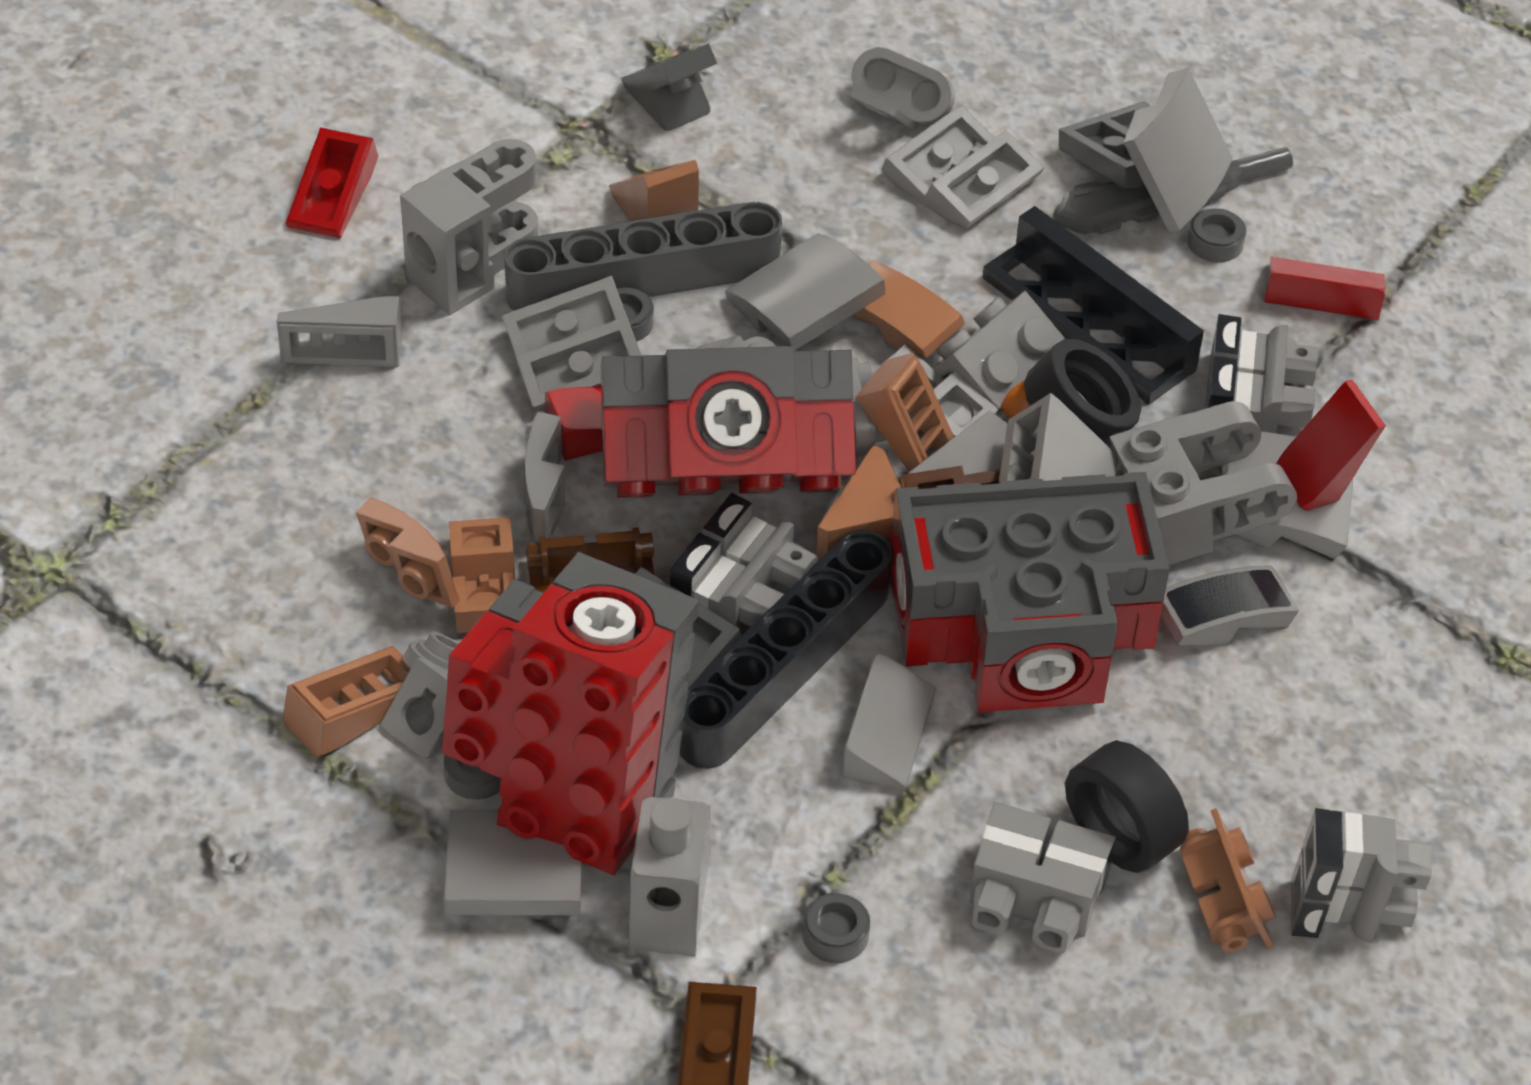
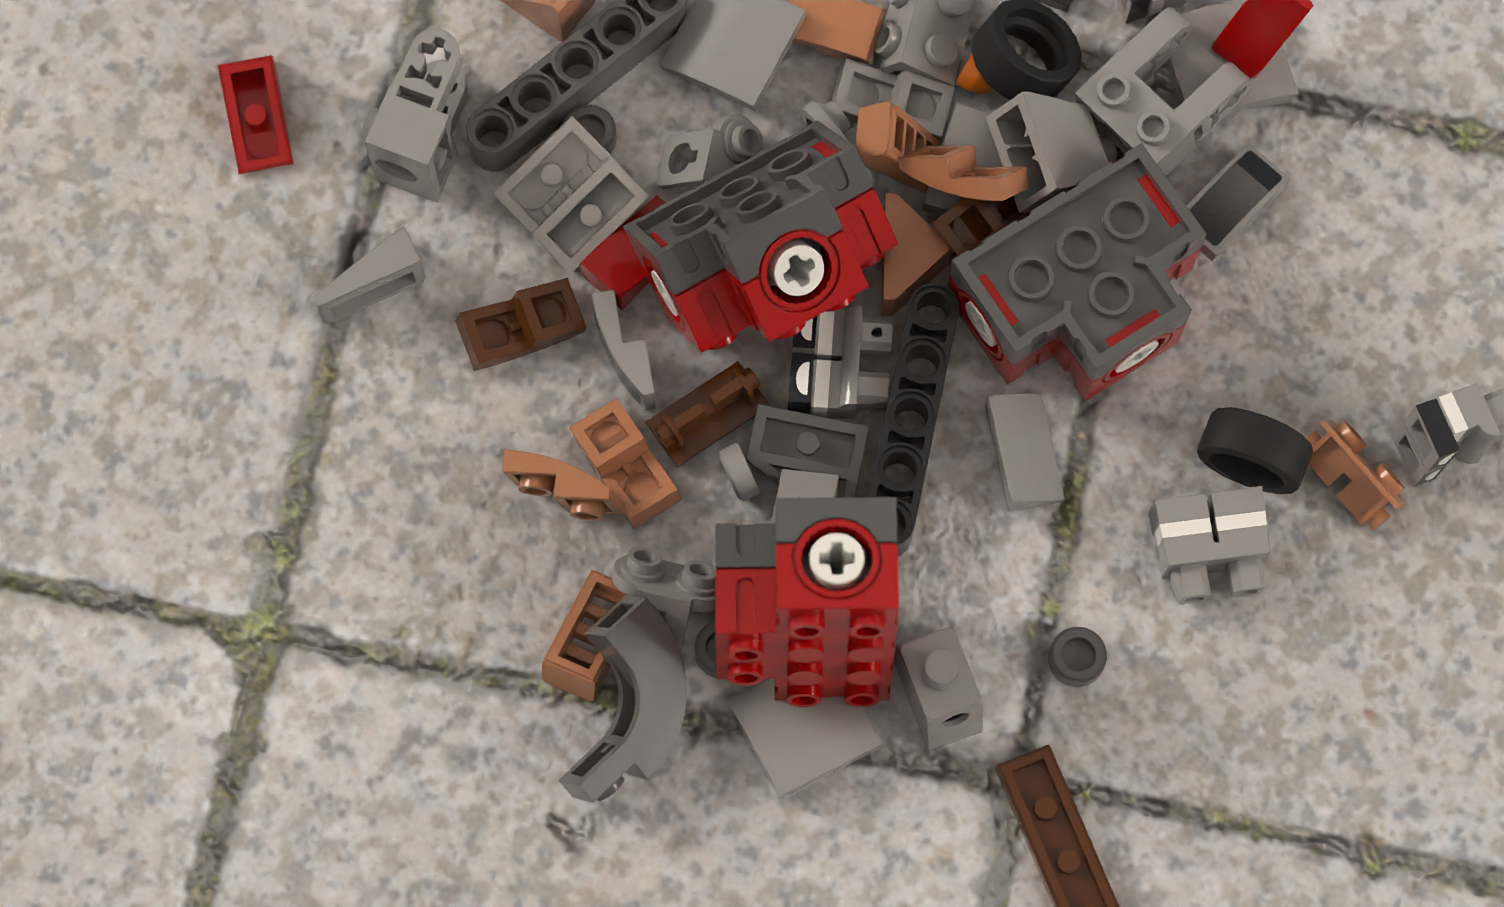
camera: 25 degrees left, 25 degrees up
(387, 719) = (649, 700): none -> dark grey arch
(446, 430) = (522, 325): none -> reddish brown slope
(958, 442) = (956, 172): none -> nougat slope

